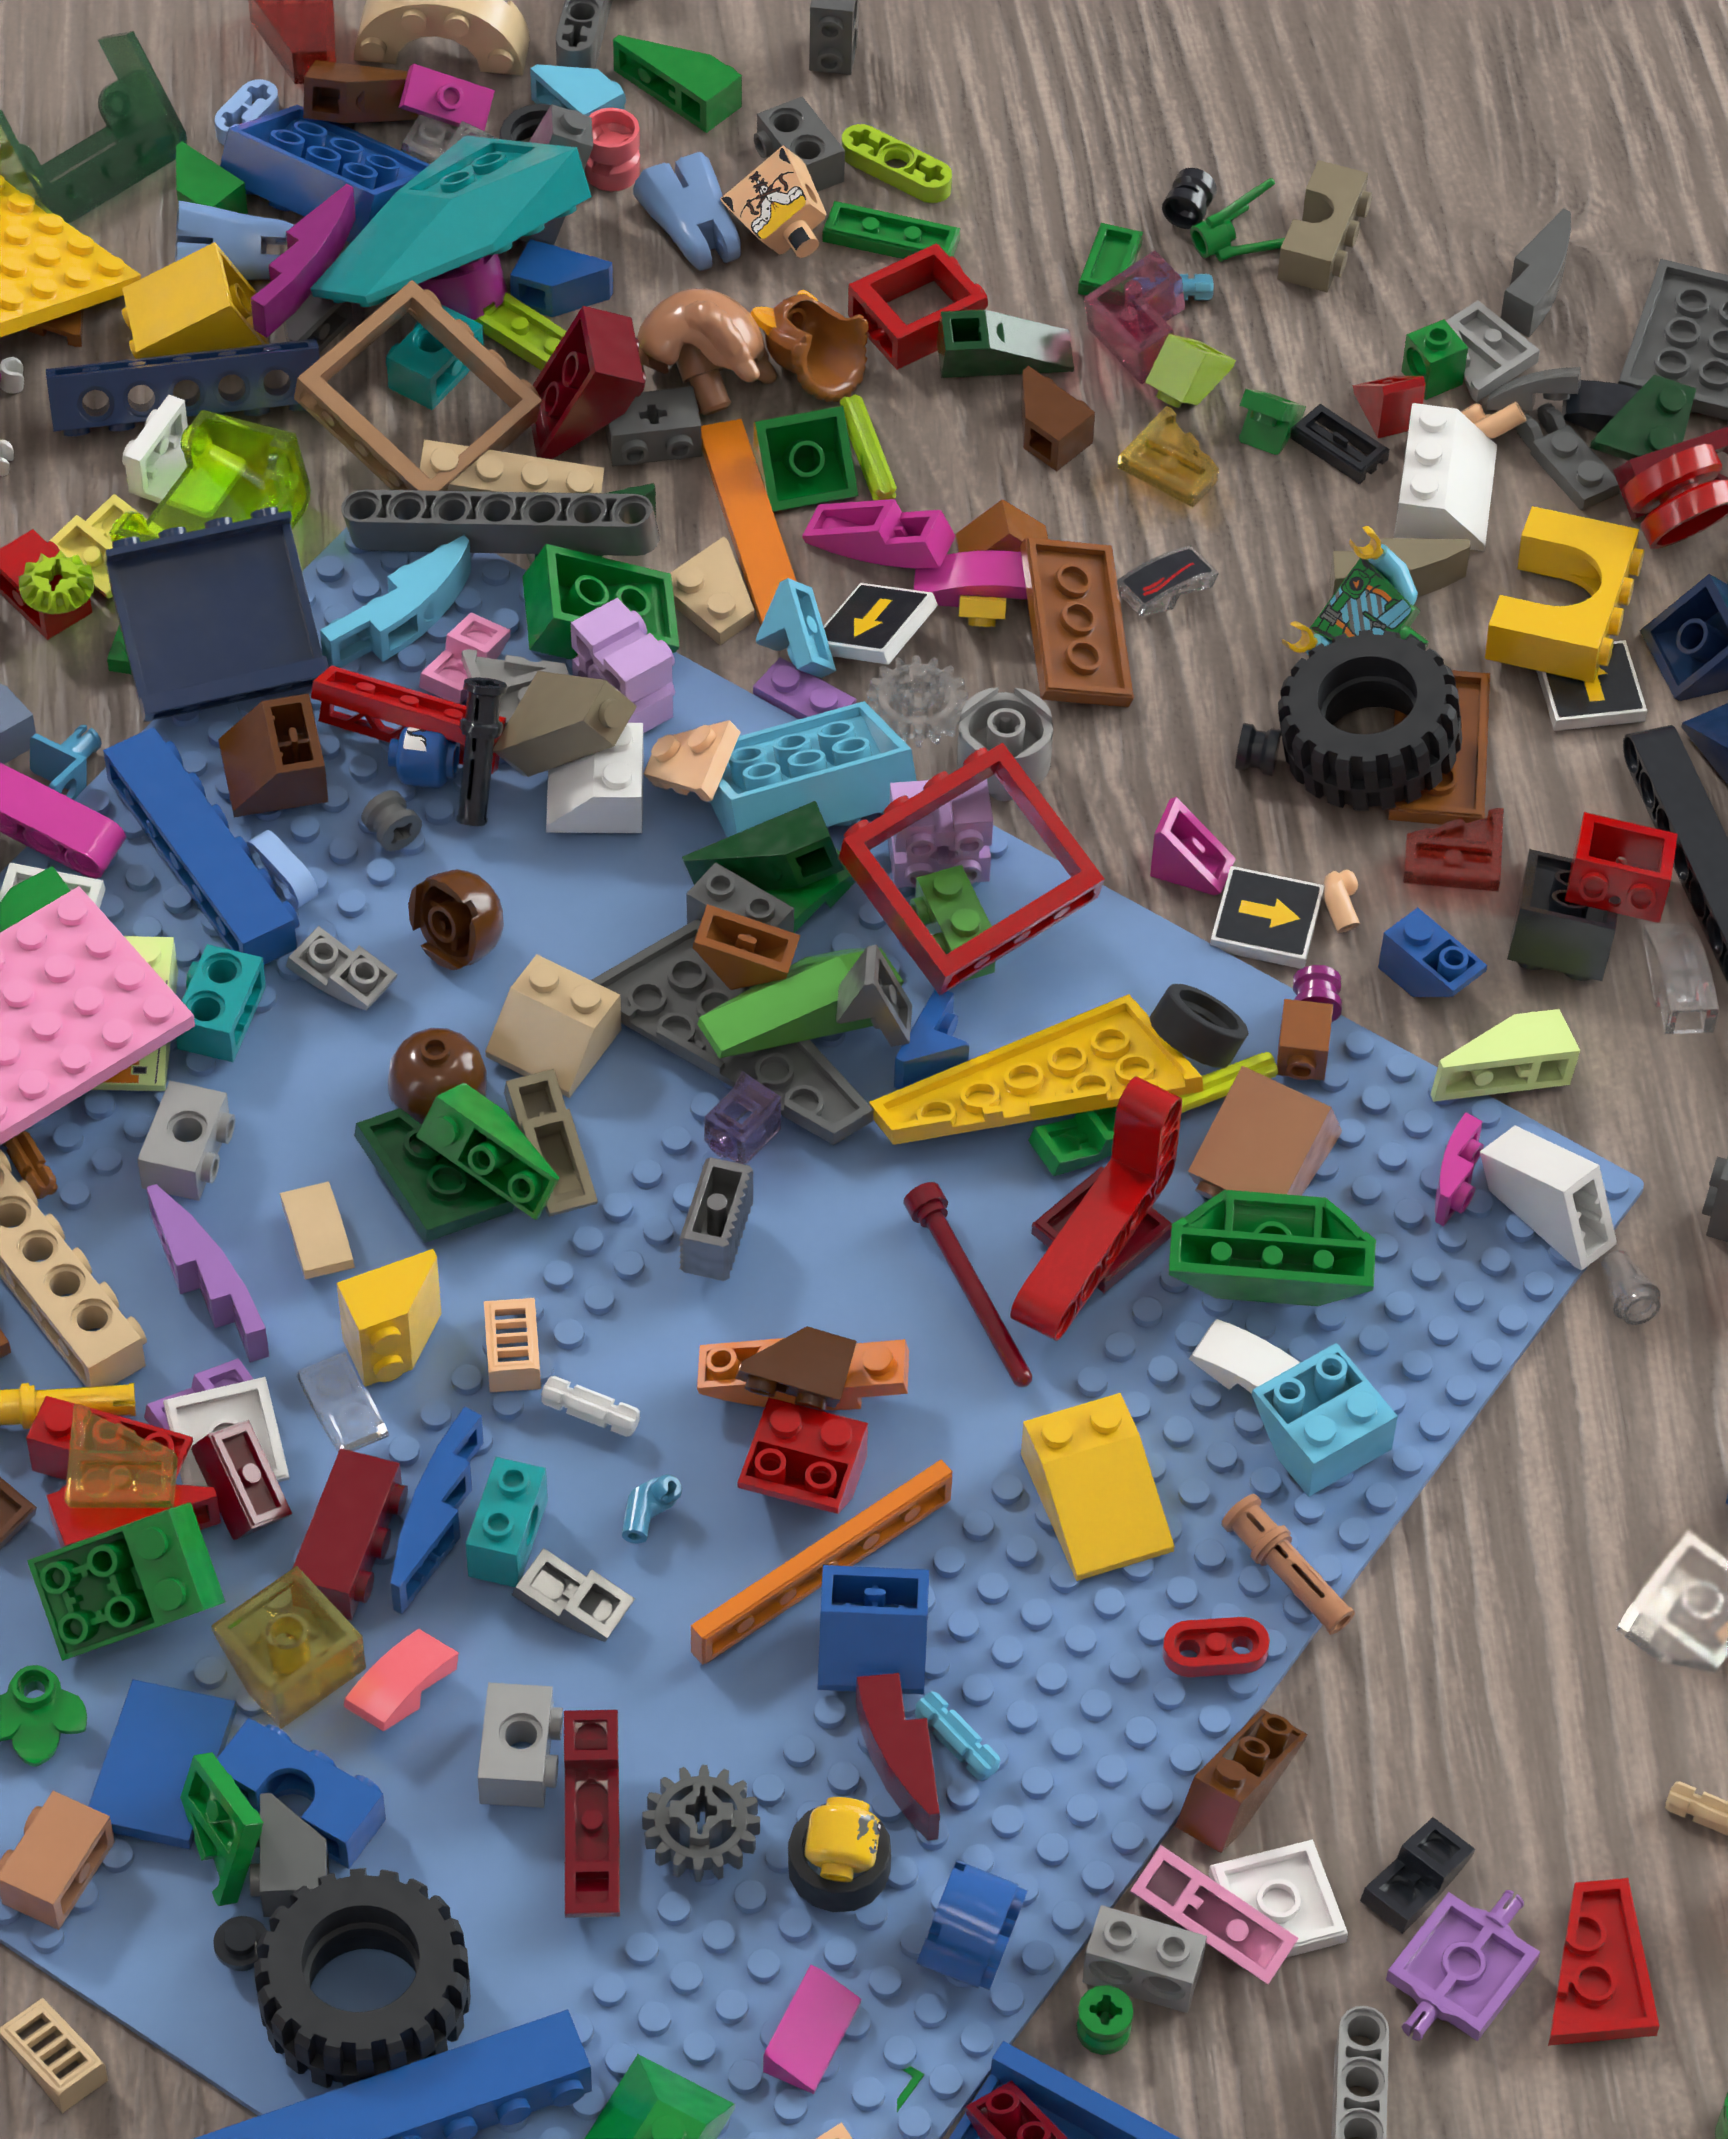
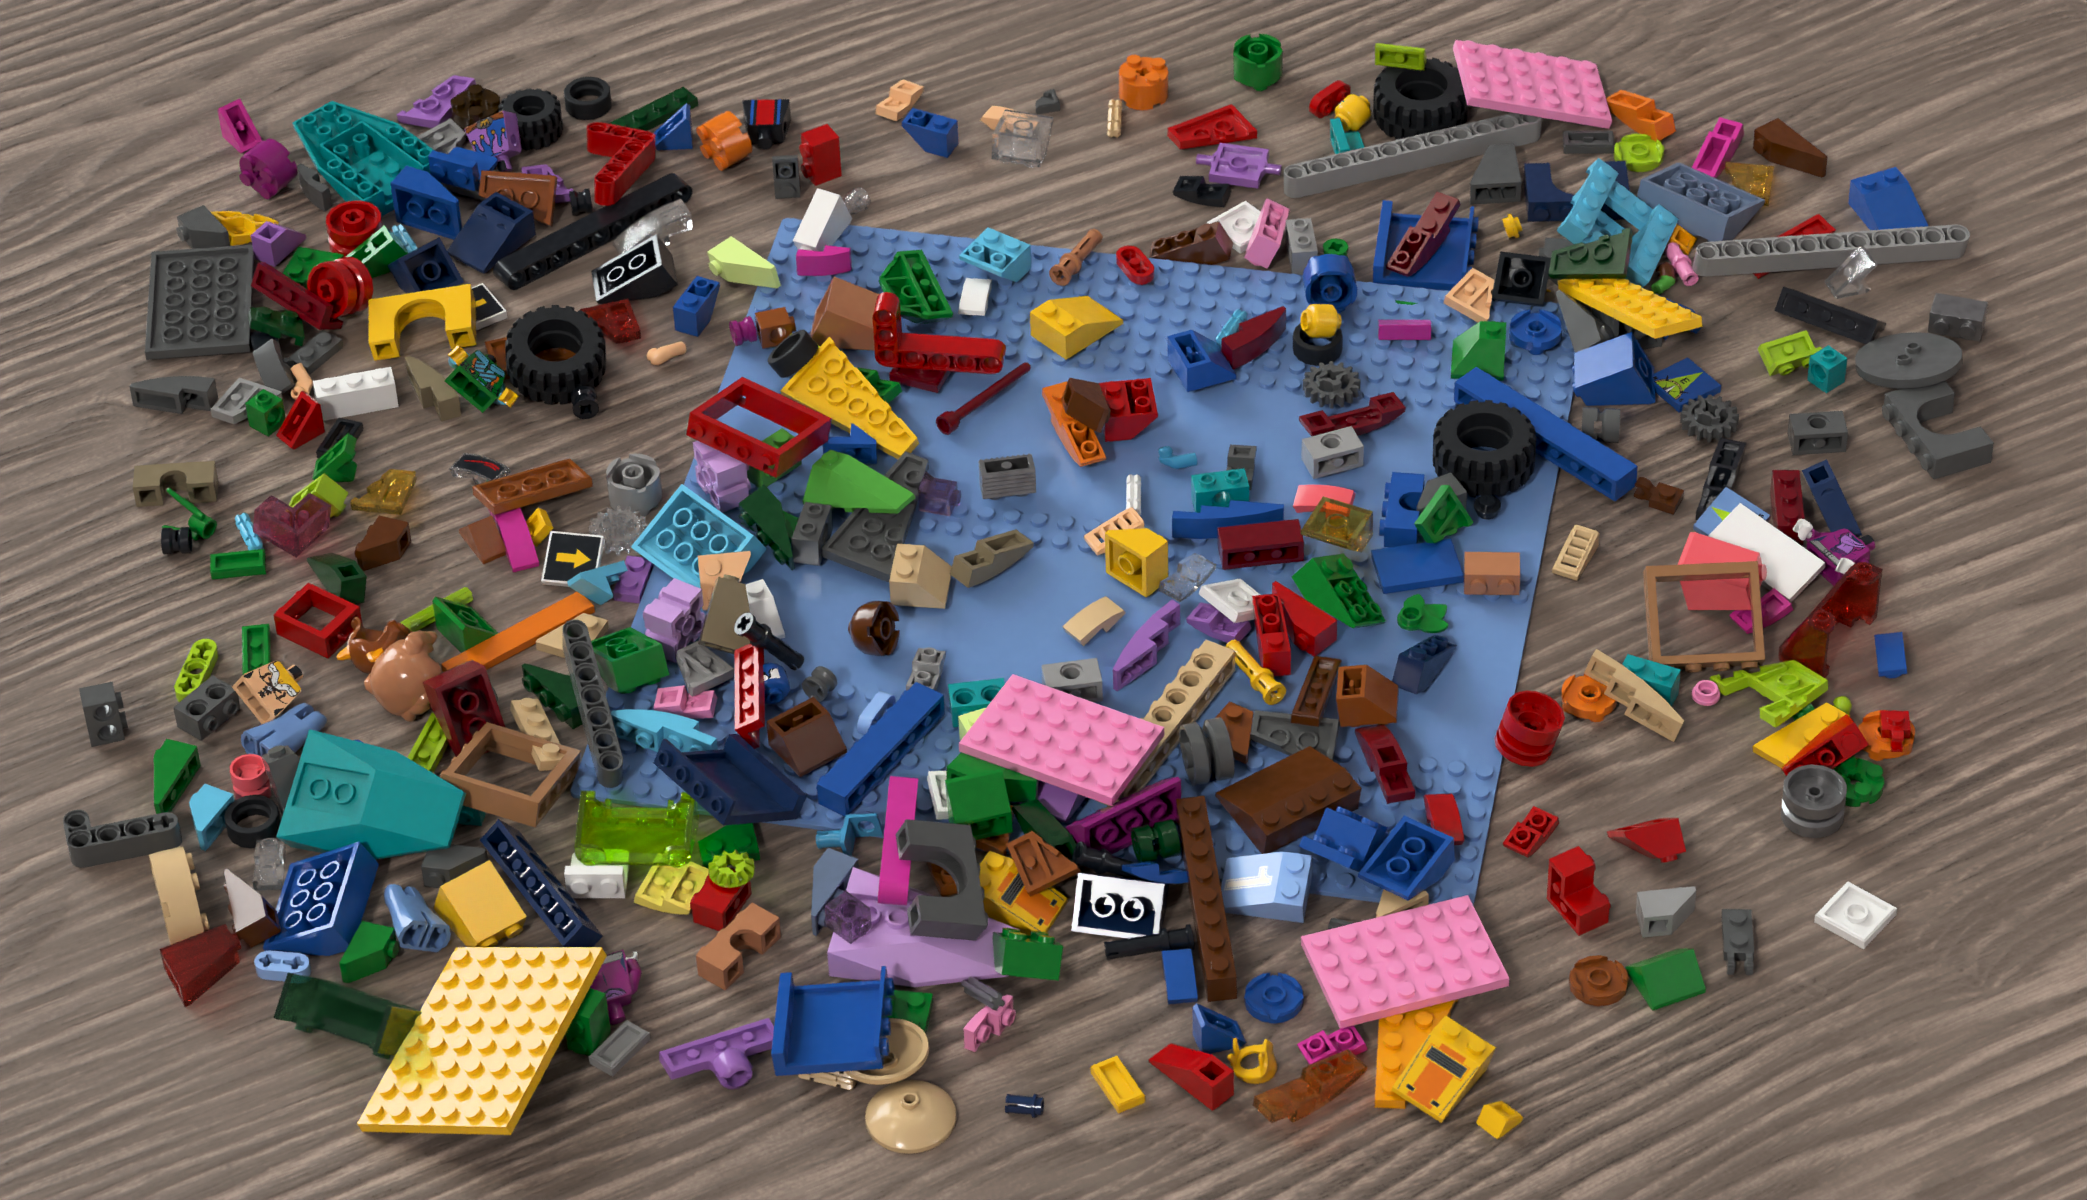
camera: 110 degrees left, 10 degrees down
(116, 1467) = (1291, 605): clear yellow wing -> none
(242, 1479) = (1254, 585): dark red slope -> none
(310, 251) = (416, 853): magenta slope -> none
(425, 1183) = (1038, 592): dark green wing -> none
(431, 1065) = (974, 611): reddish brown cylinder -> none
(445, 97) = (241, 864): dark pink plate -> none
(489, 1147) = (1012, 568): green slope -> none
(744, 949) = (845, 503): dark orange slope -> none
(803, 1572) = (1177, 391): orange tile -> none
(876, 994) = (857, 440): dark grey slope -> none
(881, 533) = (503, 580): dark pink slope -> none
(1189, 852) = (668, 411): dark pink slope -> none
(1267, 917) = (690, 376): black tile -> none
(1638, 880) = (599, 269): red window -> none

